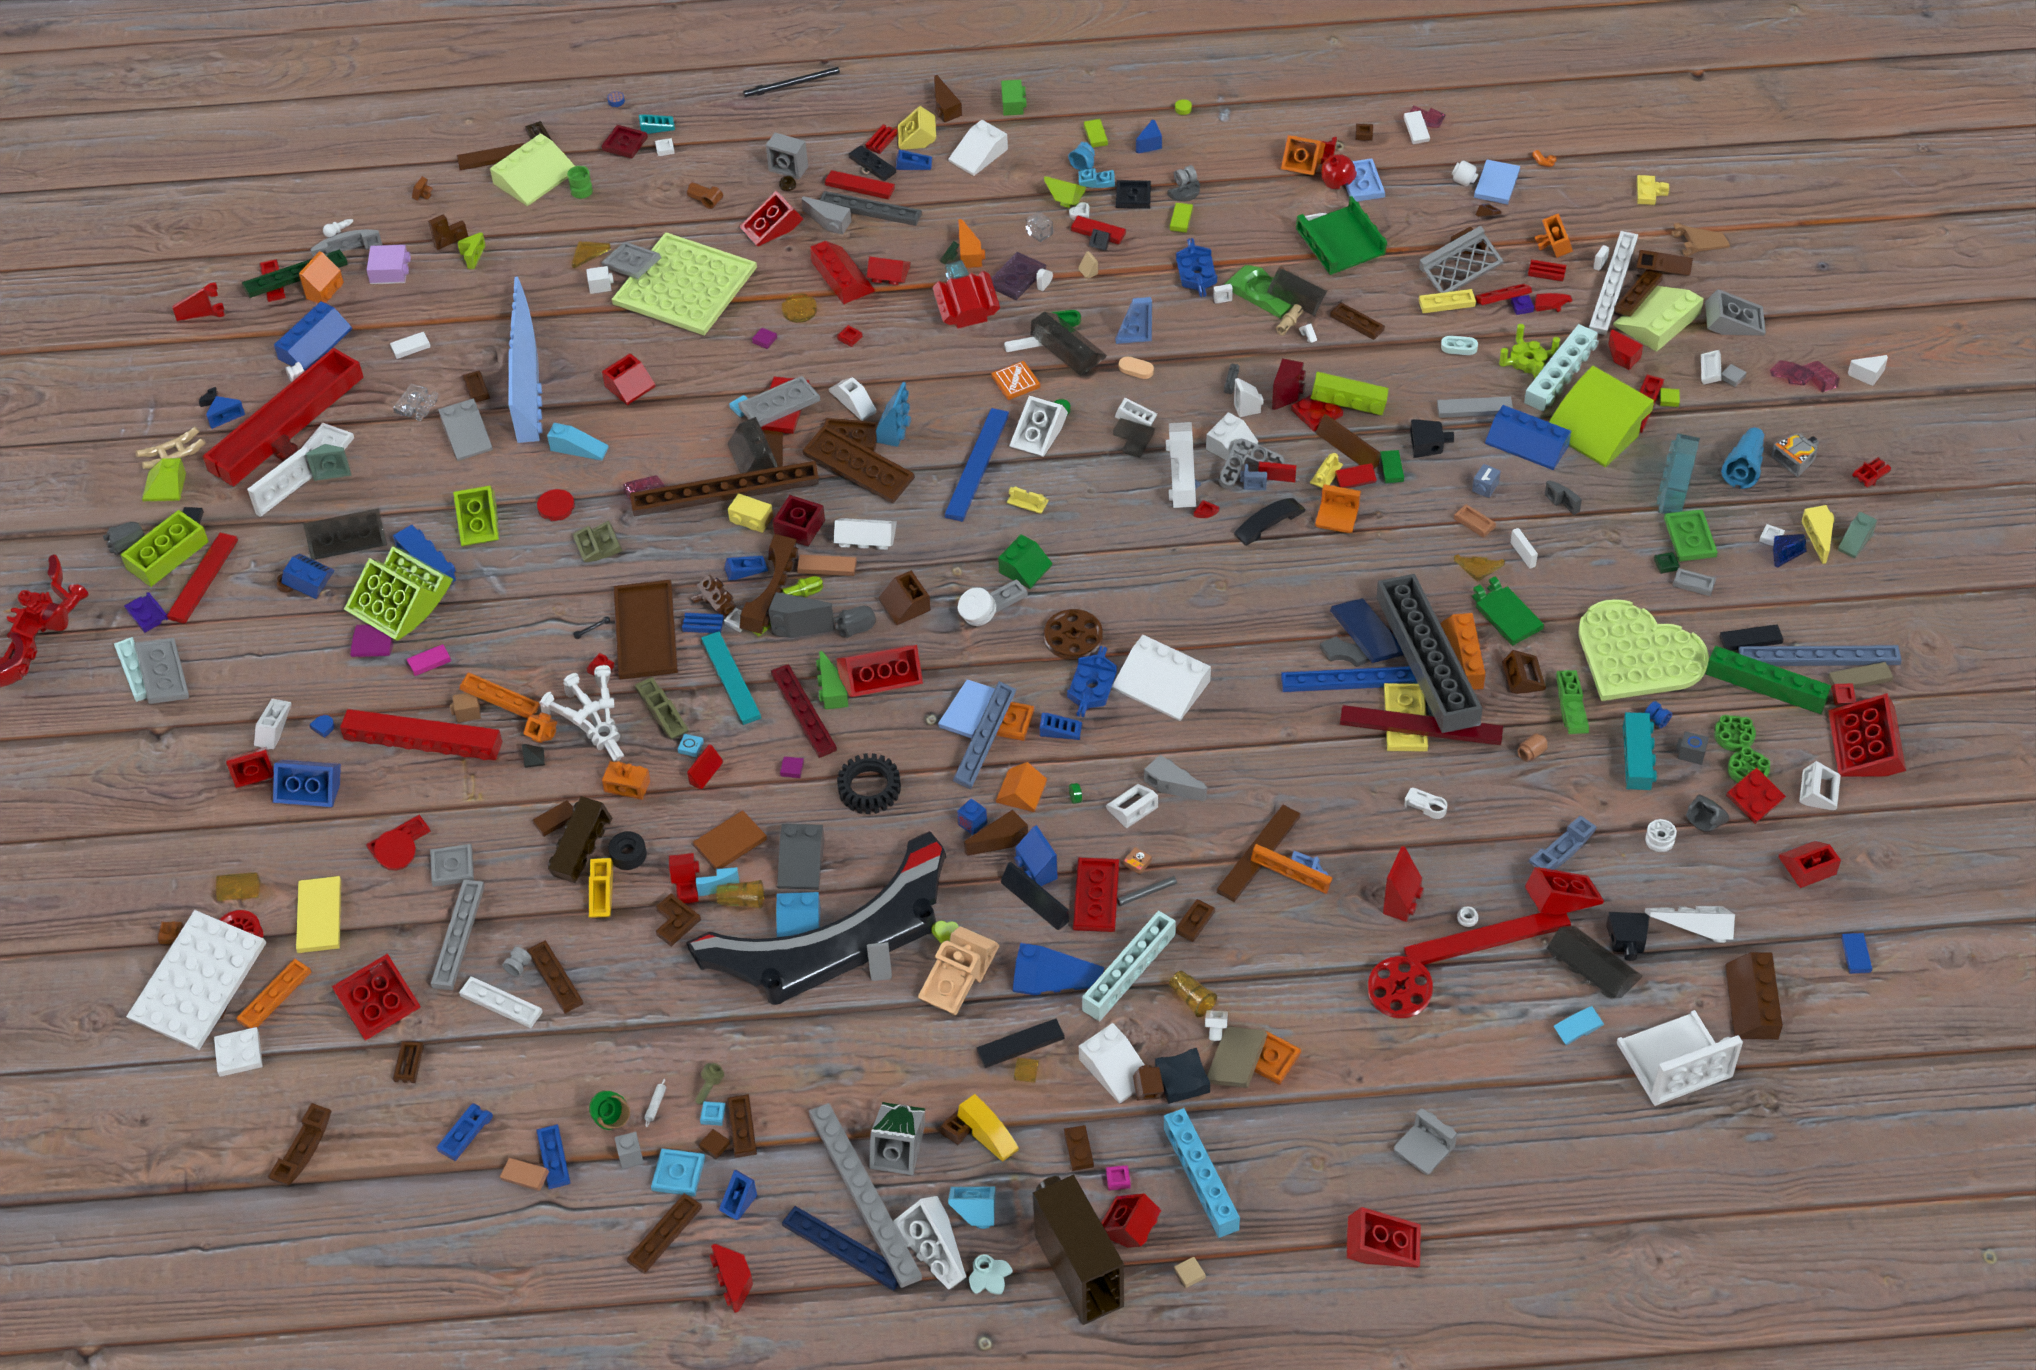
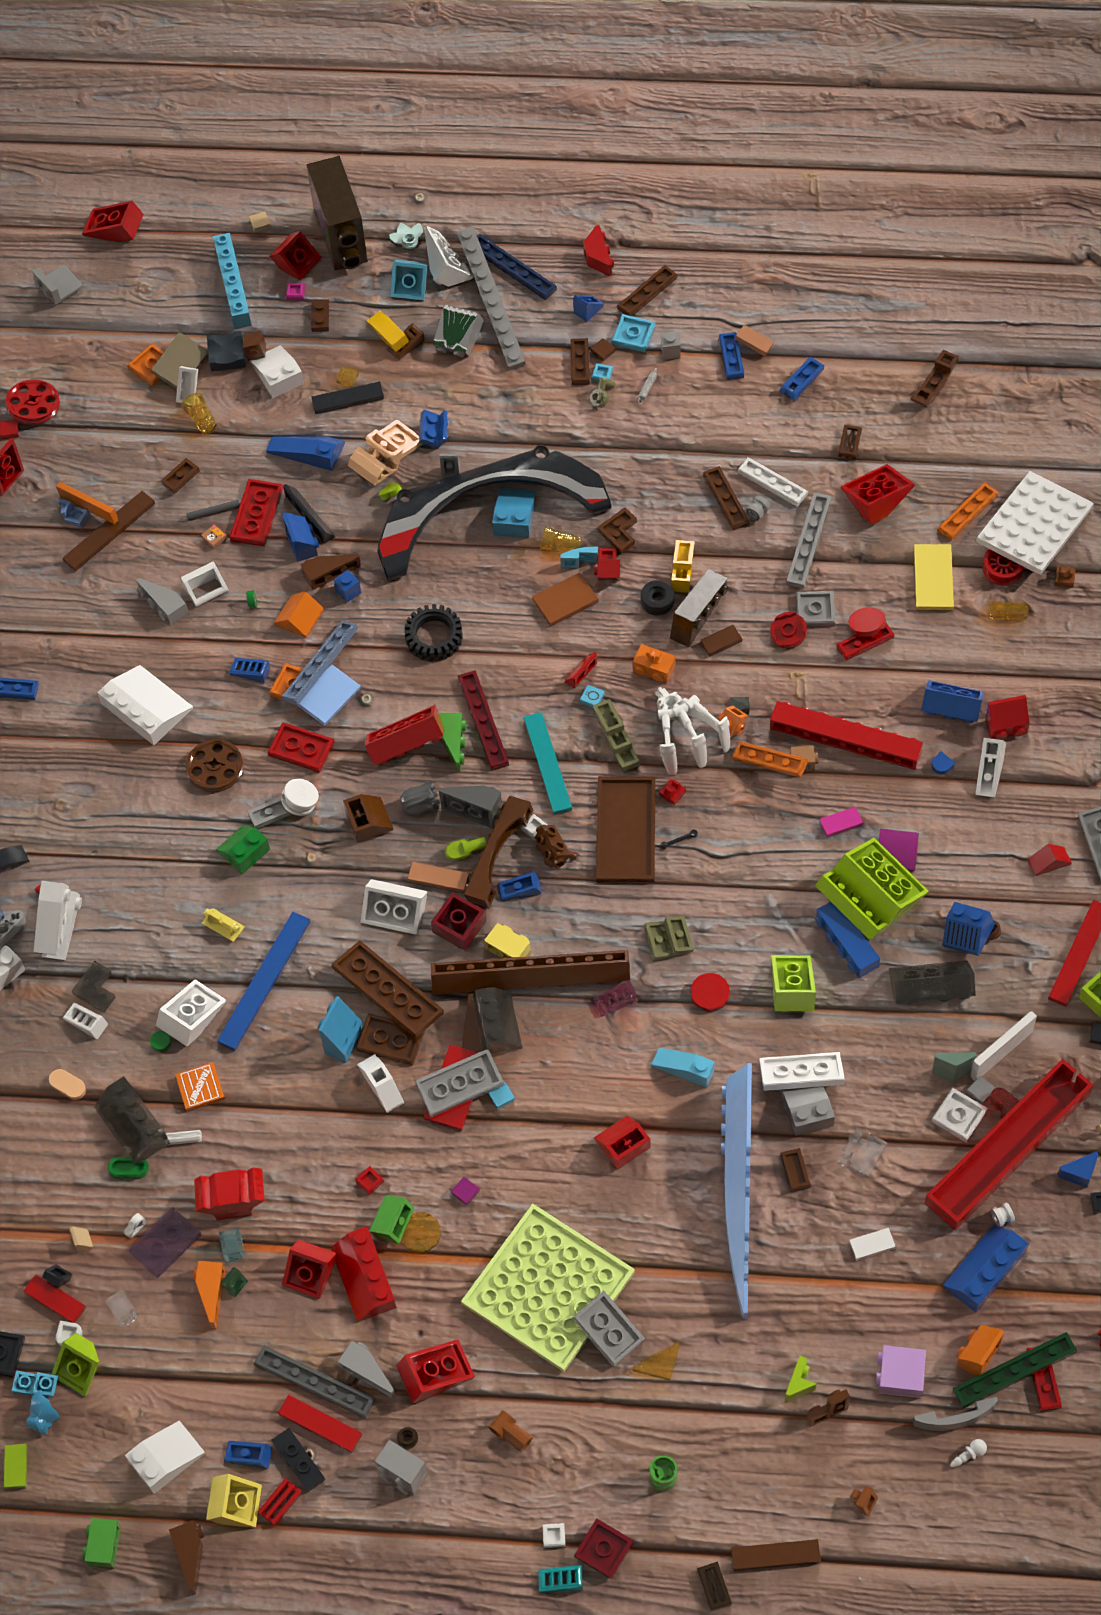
camera: 170 degrees left, 10 degrees up
(221, 649) = (1049, 859): none -> red slope
(238, 1051) = (994, 466): white plate -> none
(469, 449) = (801, 1071): none -> white tile
(481, 834) = (788, 630): none -> red tile
(532, 170) = (722, 1511): yellowish green slope -> none
(599, 279) = (647, 1305): white brick -> none
(609, 1110) = (683, 375): green piece -> none
(701, 621) = (571, 824): blue tile -> none
(792, 767) = (501, 662): magenta tile -> none
(800, 856) = (503, 574): dark grey slope -> none
(823, 304) = (392, 1219): none -> bright green brick
(907, 1010) = (433, 428): none -> blue bracket
(988, 662) = (301, 747): none -> red tile
(1092, 670) = (212, 694): blue plate -> none
(1128, 966) = (244, 437): light aqua brick -> none
(1137, 322) = (49, 1122): medium blue wing -> none

